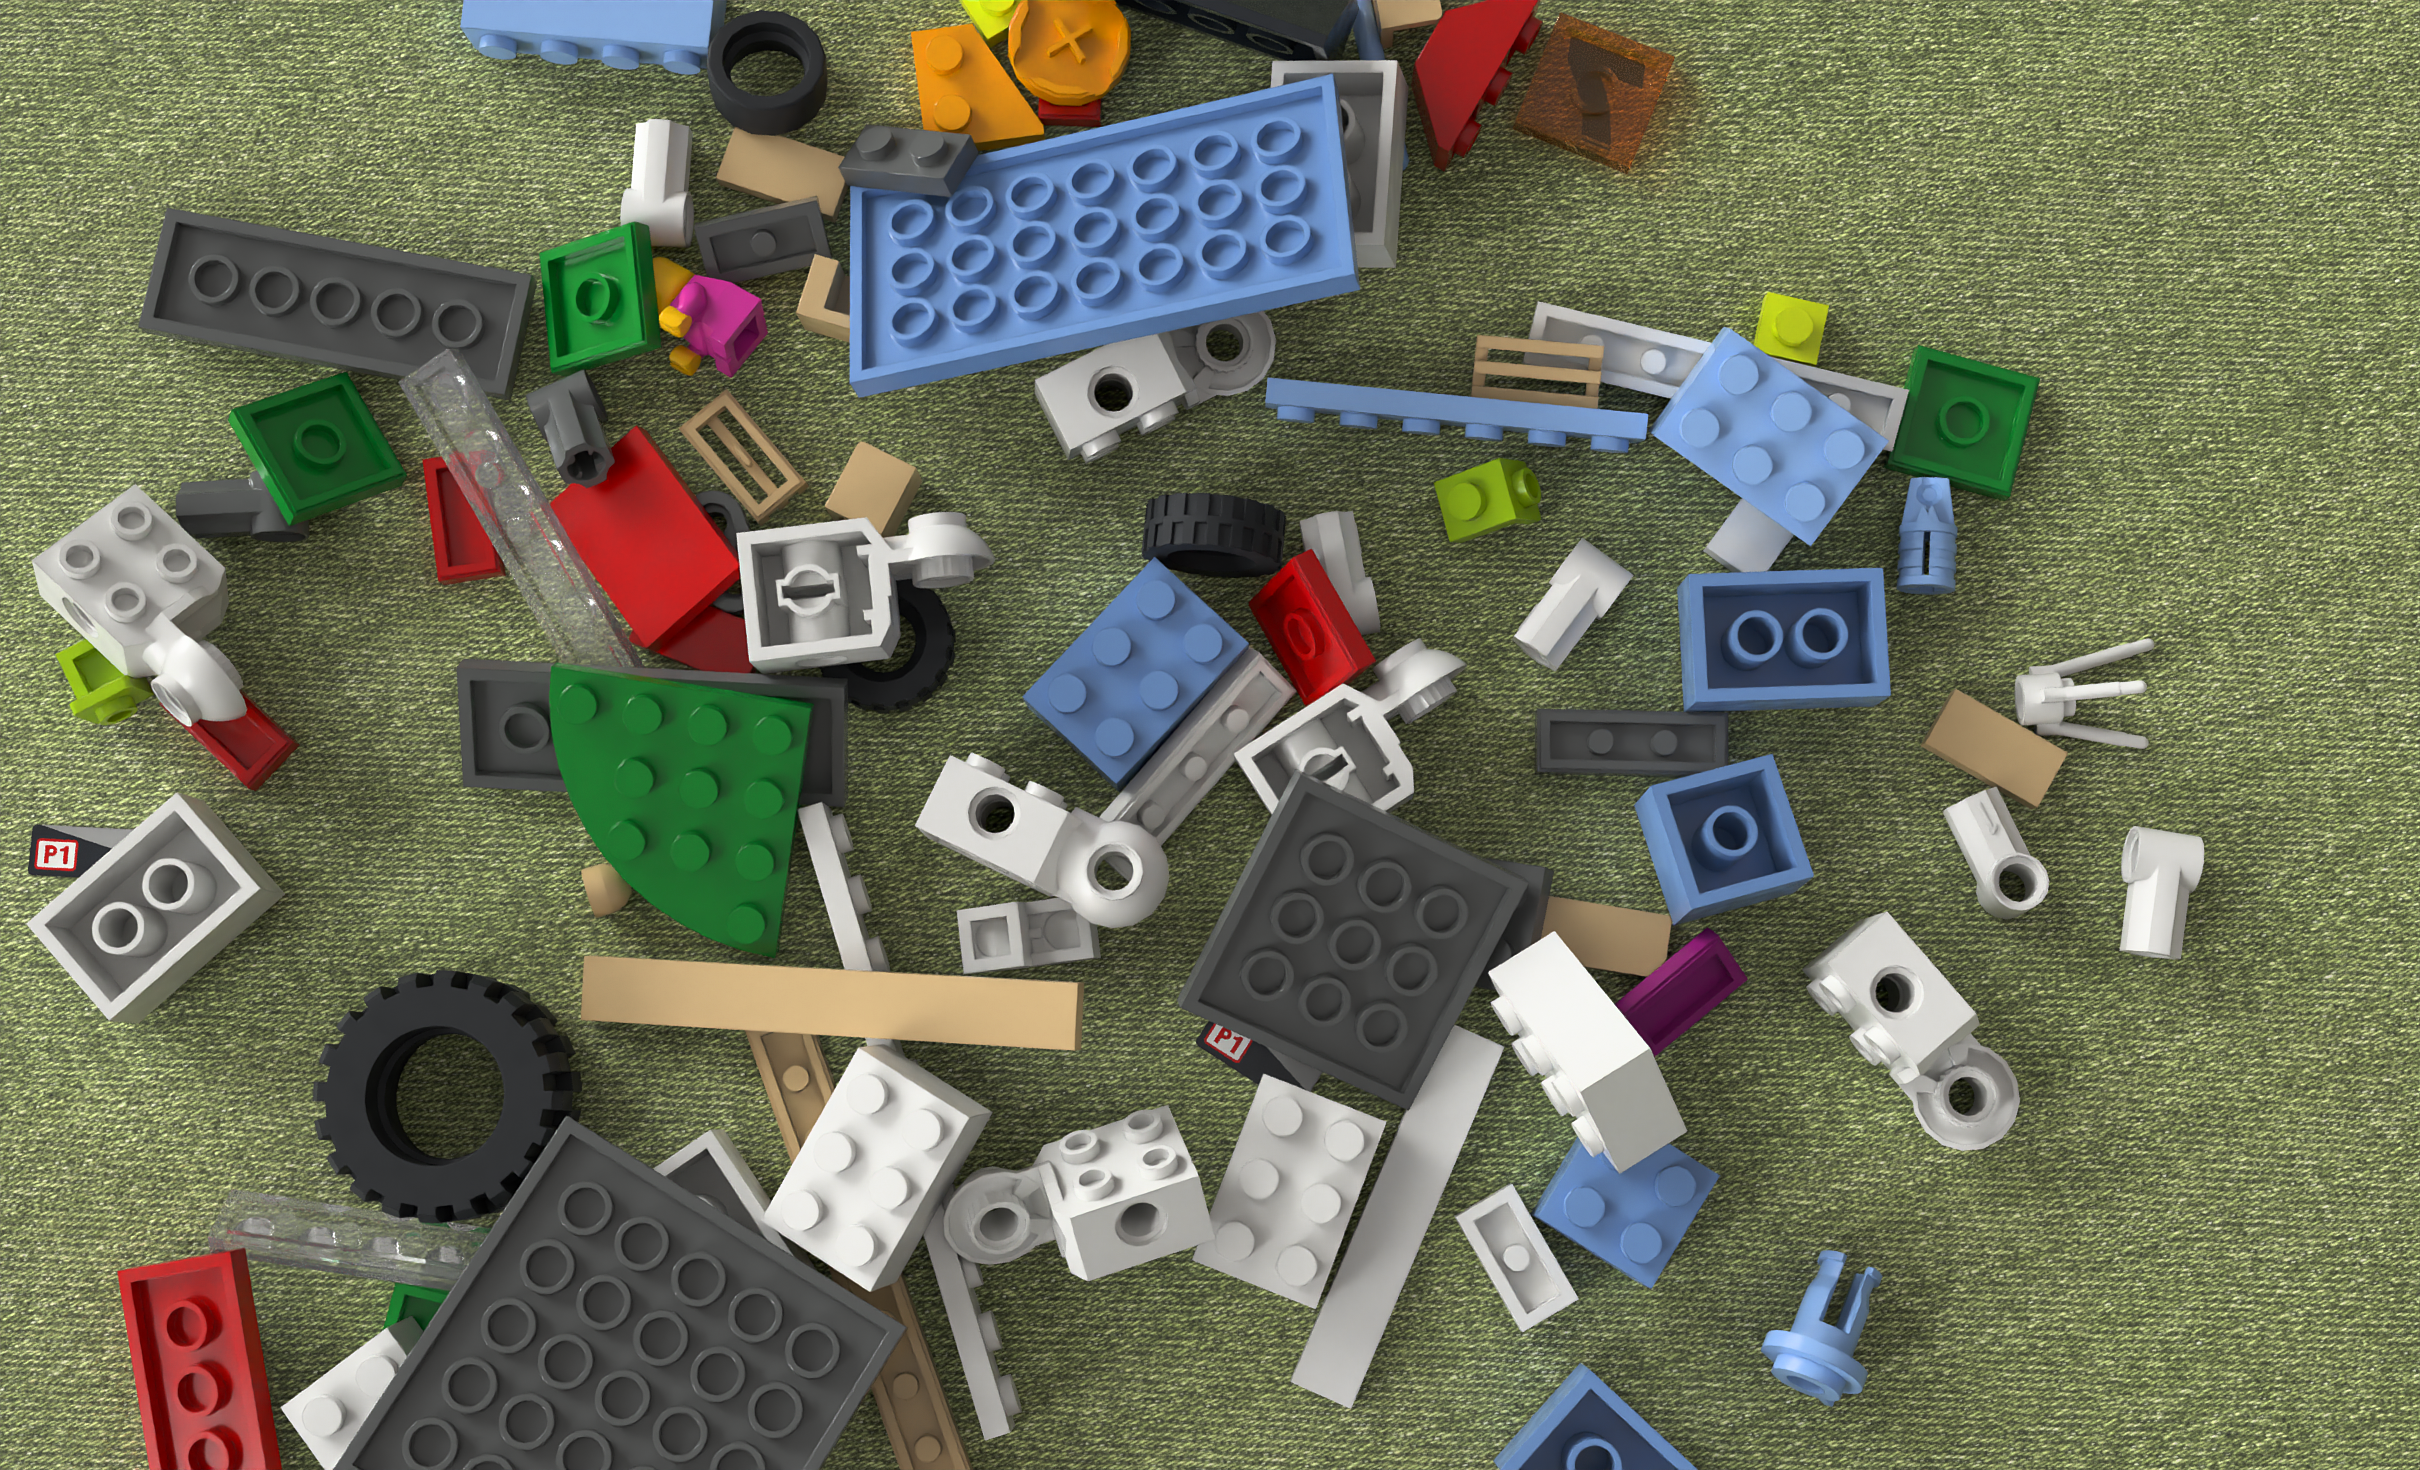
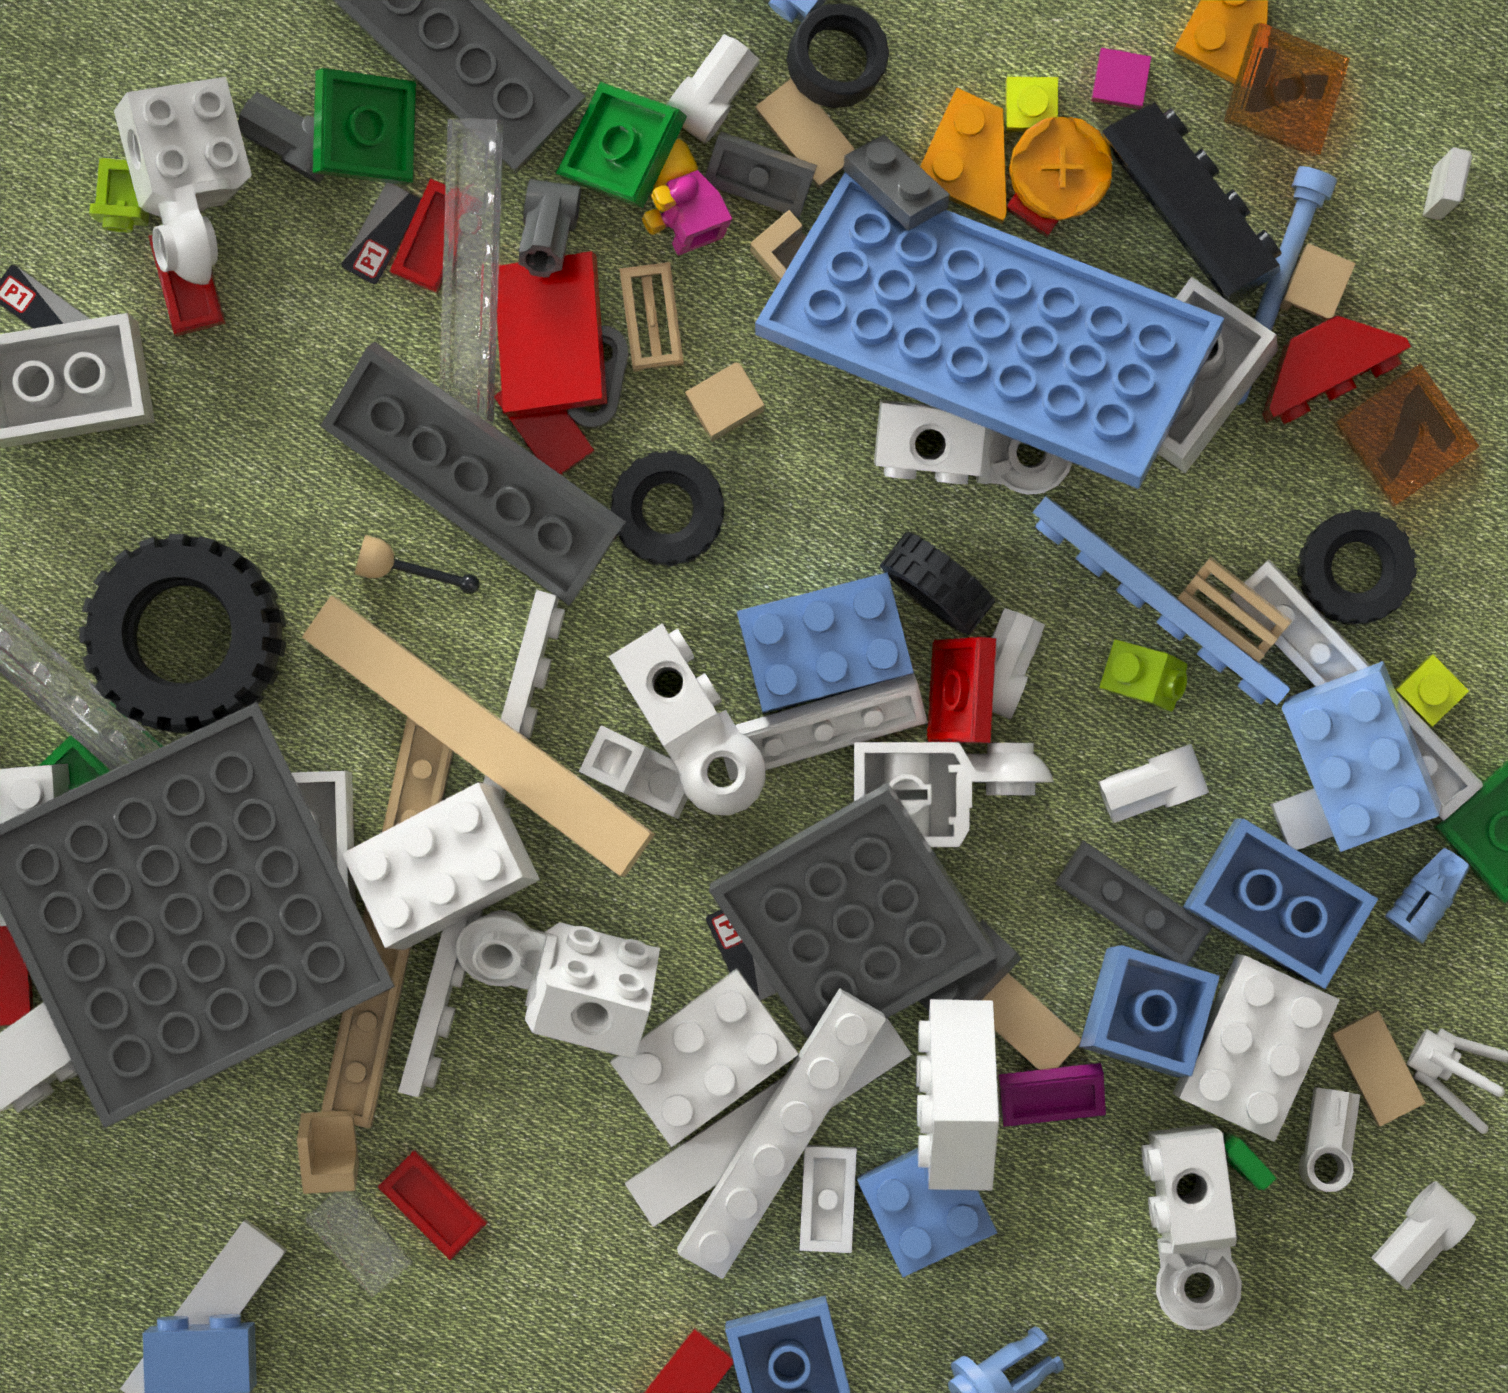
camera: 30 degrees right, 5 degrees up
(407, 550) = (381, 233): none -> sticker
(687, 794) = (469, 531): green plate -> none
(832, 590) = (655, 456): white brick -> none
(1422, 1220) = (781, 1133): none -> white plate
(1641, 206) = (1385, 539): none -> black tyre
(1859, 804) = (1257, 1046): none -> white brick
(1934, 931) = (1247, 1163): none -> green tile

